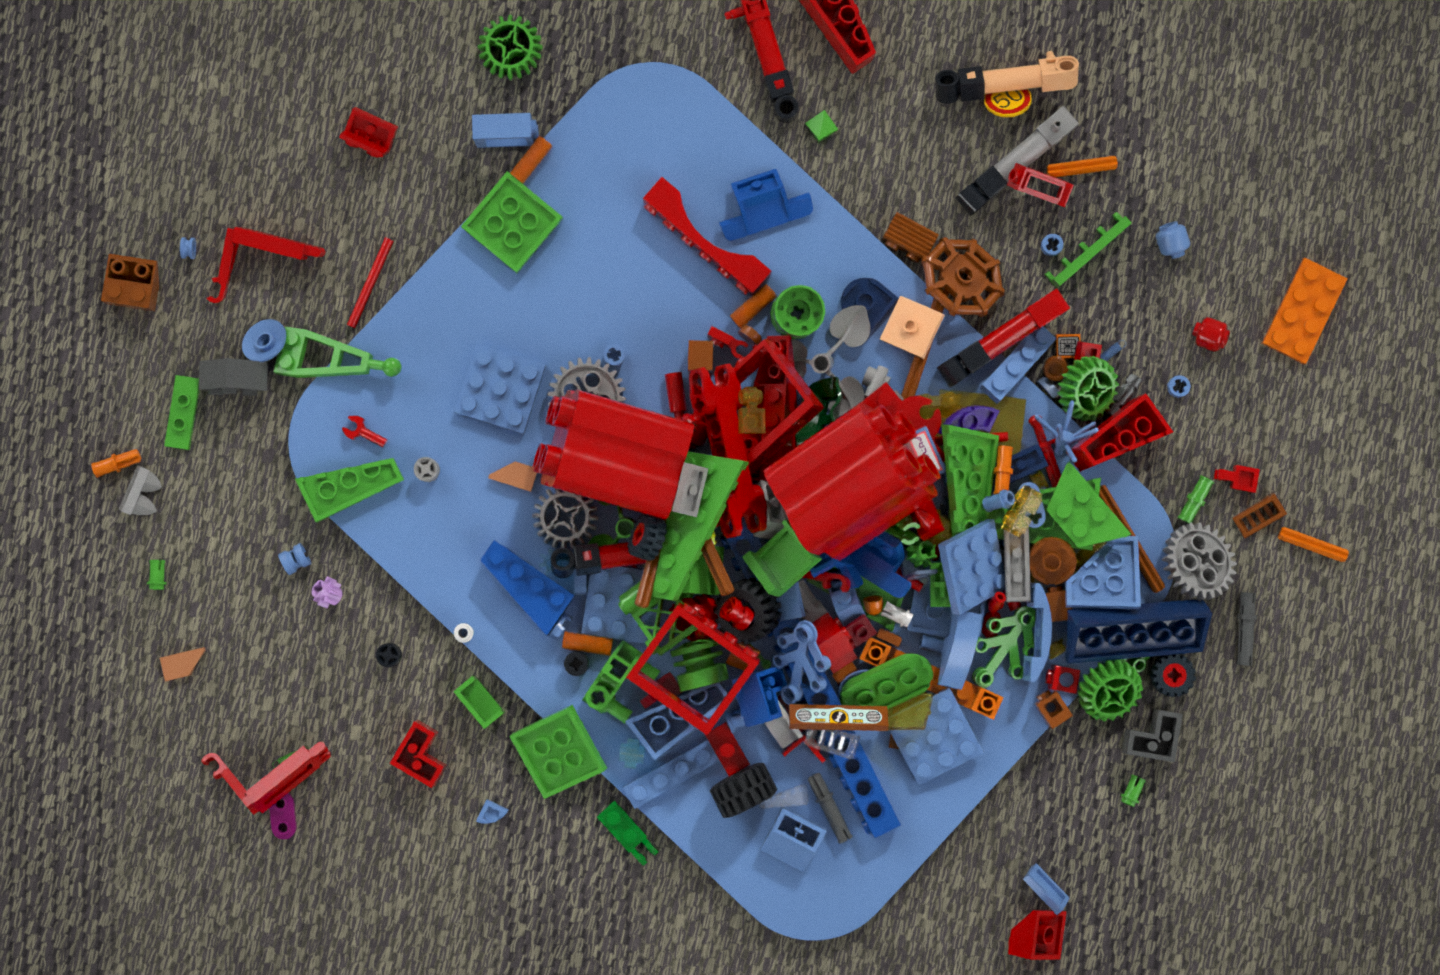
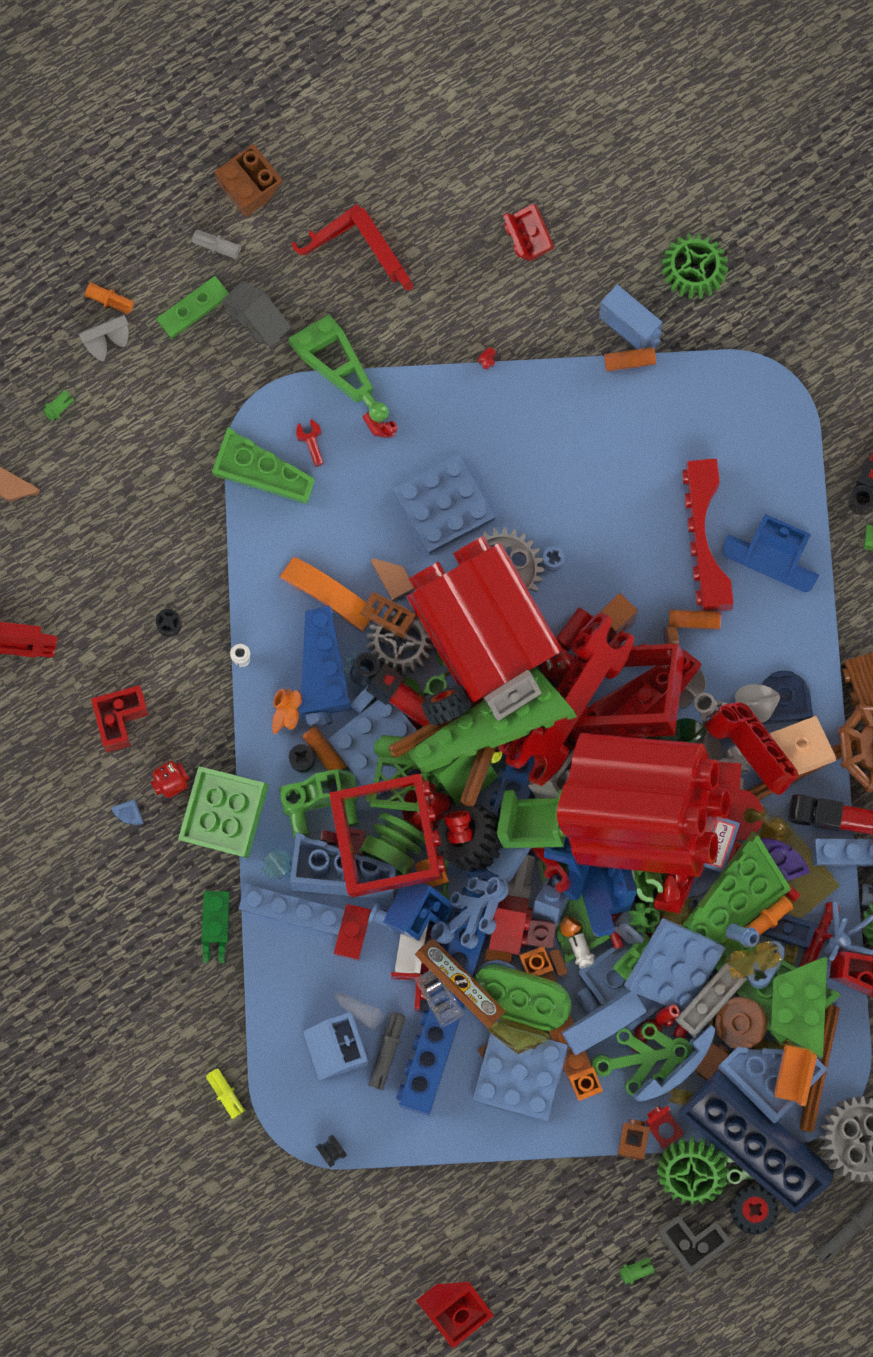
camera: 50 degrees right, 10 degrees down
(153, 350) = (216, 244): none -> light grey axle
(188, 248) = (314, 194): medium blue bush -> none
(264, 340) = (304, 309): medium blue dish -> none
(294, 559) = (169, 487): medium blue wheel -> none
(327, 592) = (168, 533): lavender gear -> none
(370, 282) = (422, 341): red bar -> none
(406, 375) = (380, 429): none -> red arm
(422, 468) = (330, 505): light grey wheel -> none
(429, 254) = (487, 358): none -> red arm
(479, 701) = (201, 720): bright green panel -> none
(481, 529) = (326, 591): none -> orange slope
(498, 763) = (169, 779): none -> red head
(512, 222) = (571, 391): bright green plate -> none
(531, 637) = (287, 713): none -> orange plate
(551, 514) = (392, 606): none -> dark orange slope
(723, 339) = (646, 620): red plate -> none
(743, 790) = (334, 969): black tyre -> none
(745, 939) = (225, 1093): none -> neon yellow axle
(751, 418) = (611, 691): clear yellow plate -> none
(804, 300) = (737, 647): bright green wheel -> none
(857, 911) = (331, 1150): none -> black wheel
(881, 357) = (755, 744): none -> red beam
(1046, 888) = (494, 1280): medium blue tile -> none
(1125, 564) = (795, 1074): none -> orange panel

